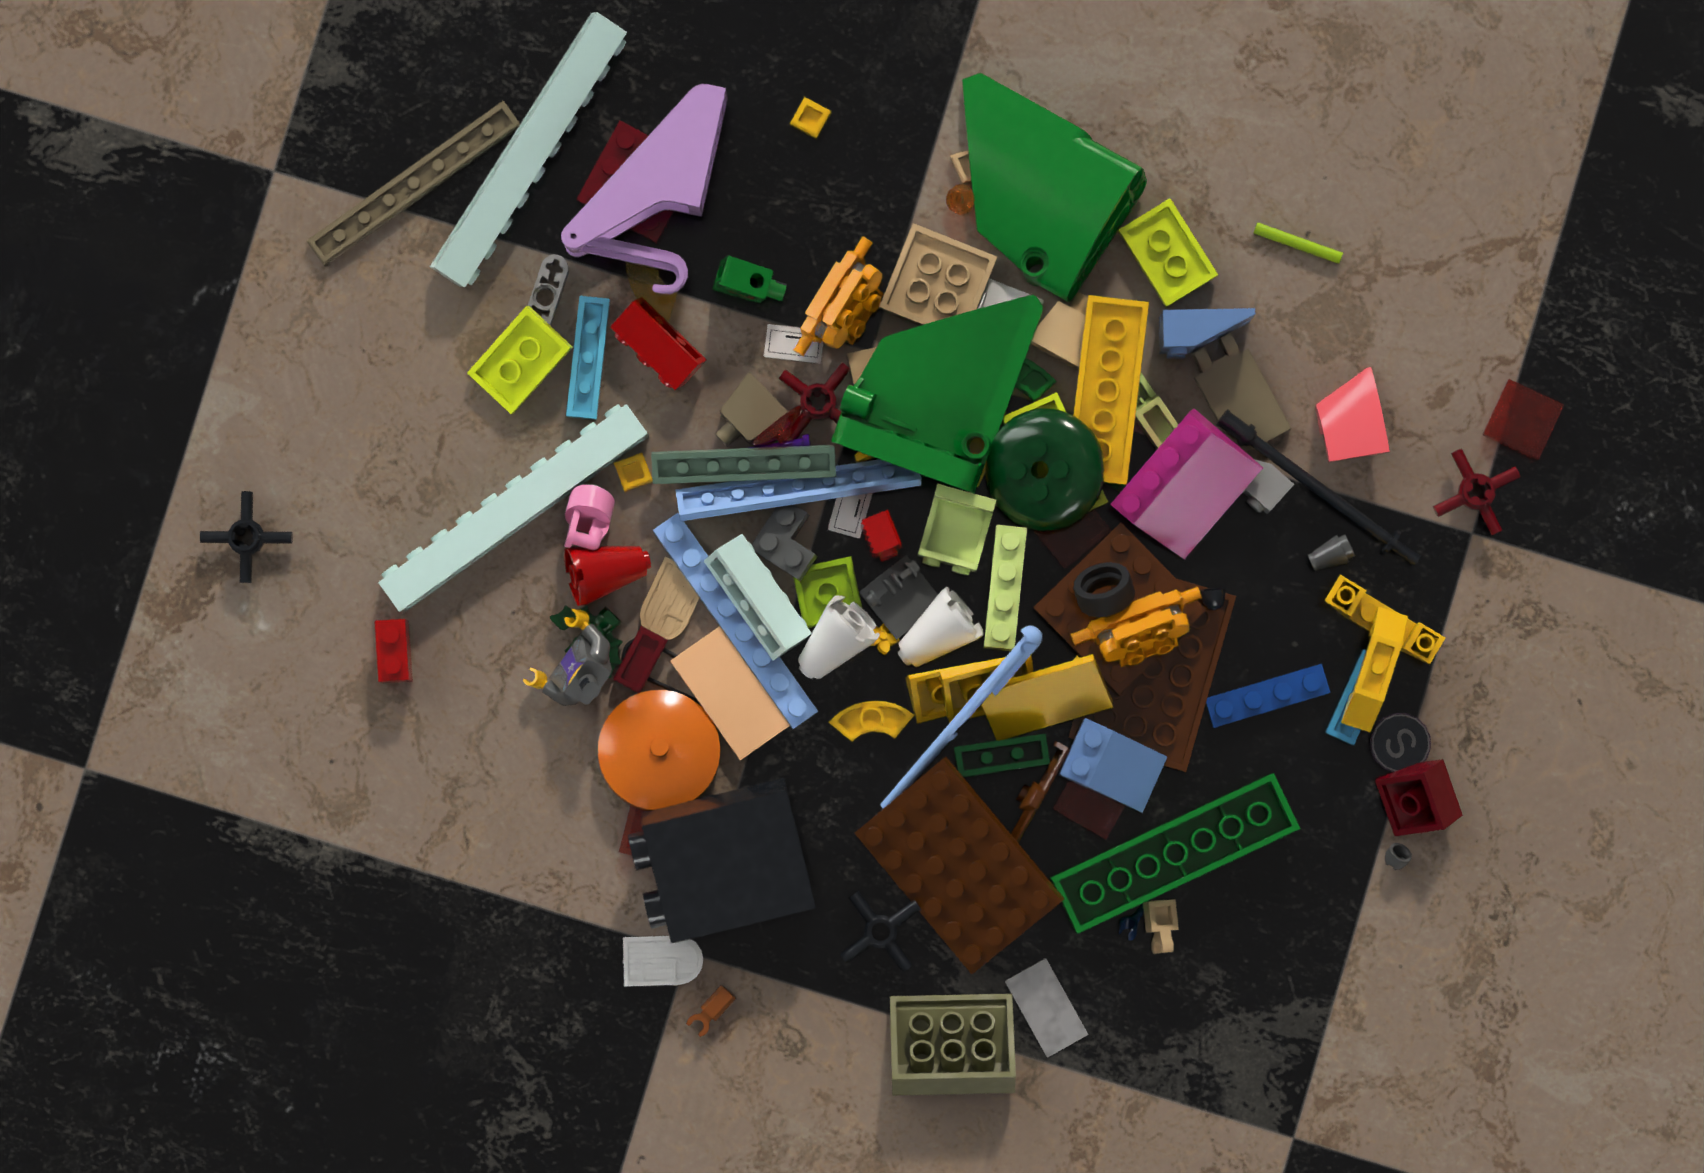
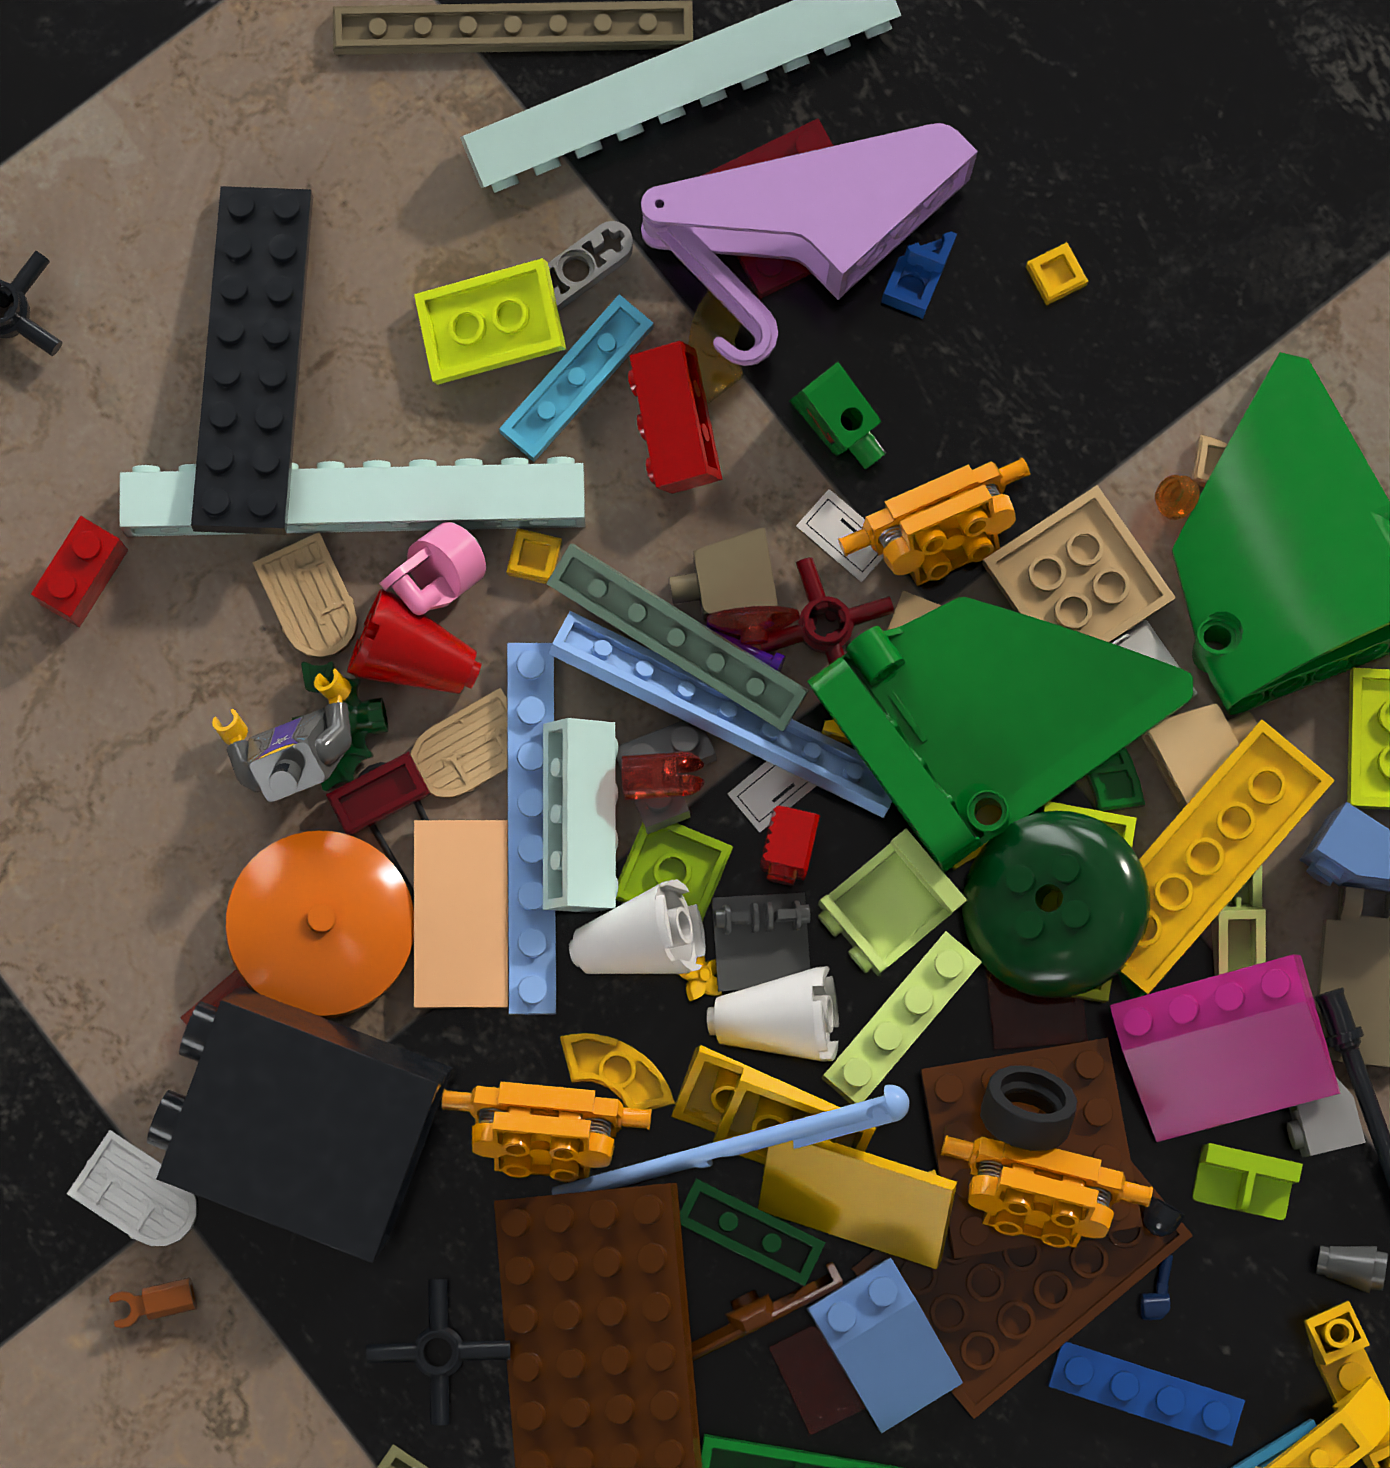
camera: 30 degrees right, 5 degrees down
(405, 470) = (252, 361): none -> black plate
(526, 578) = (309, 597): none -> tan window
(735, 172) = (918, 275): none -> blue slope
(785, 547) = (656, 775): none -> clear red piece
(855, 776) = (544, 1128): none -> light orange piece
(1242, 644) = (1157, 1305): none -> dark blue hand
(1245, 548) = (1245, 1181): none -> lime panel

